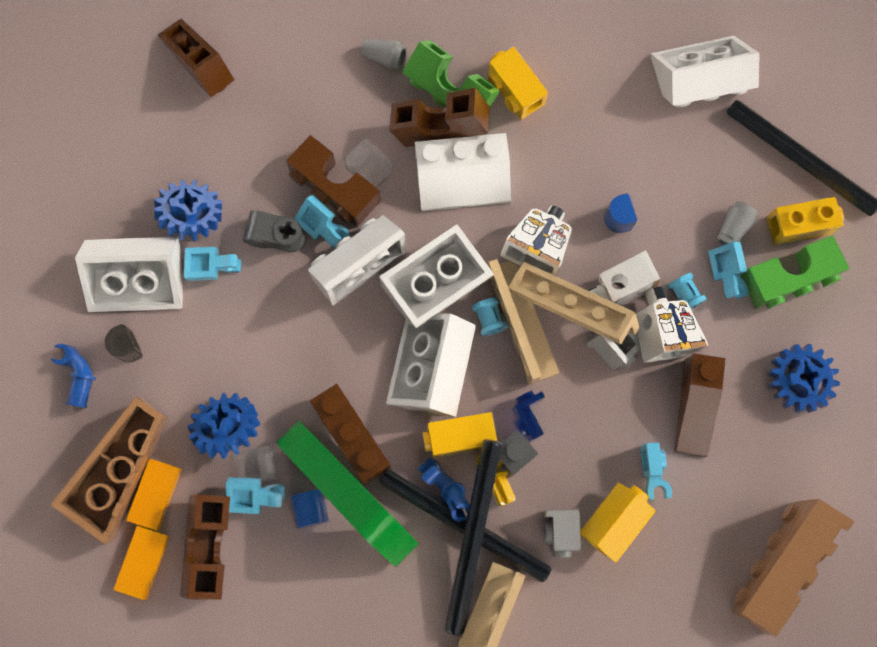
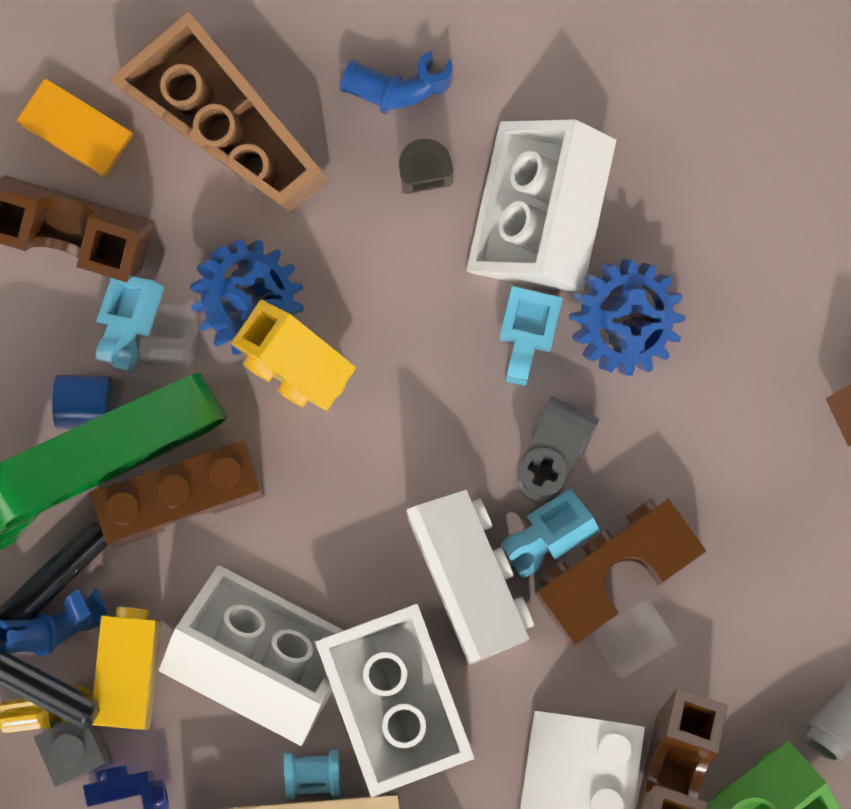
camera: 110 degrees right, 5 degrees up
(154, 494) = (174, 167): light orange tile -> none
(252, 387) = (293, 355): none -> yellow brick

